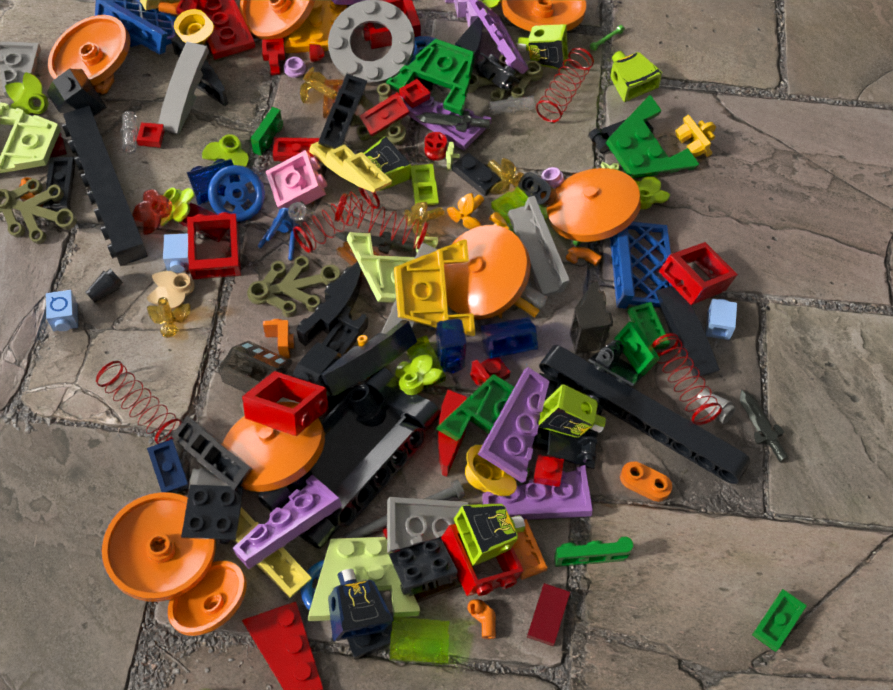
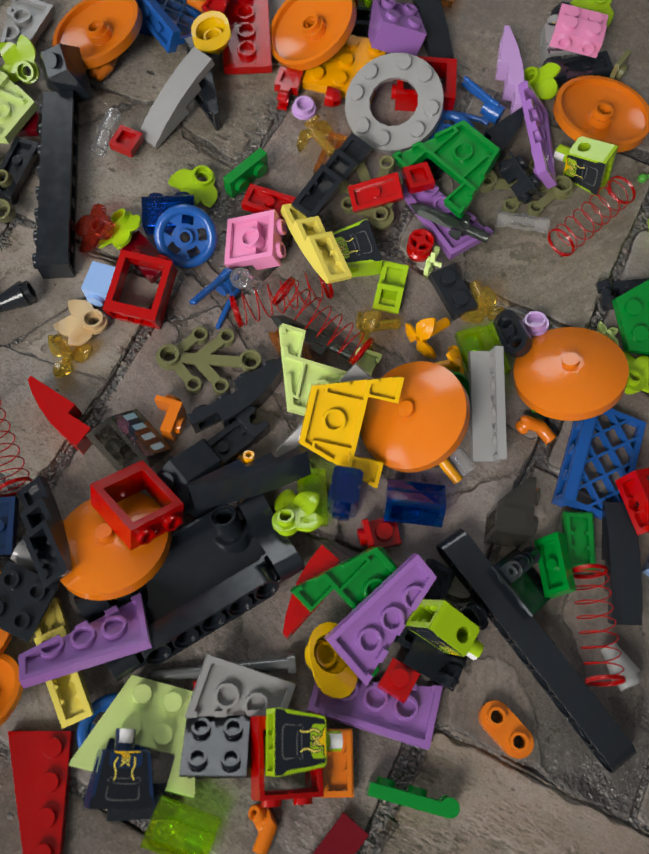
camera: 20 degrees right, 10 degrees up
(185, 364) = (61, 414): none -> red slope
(452, 25) = (491, 110): none -> blue plant

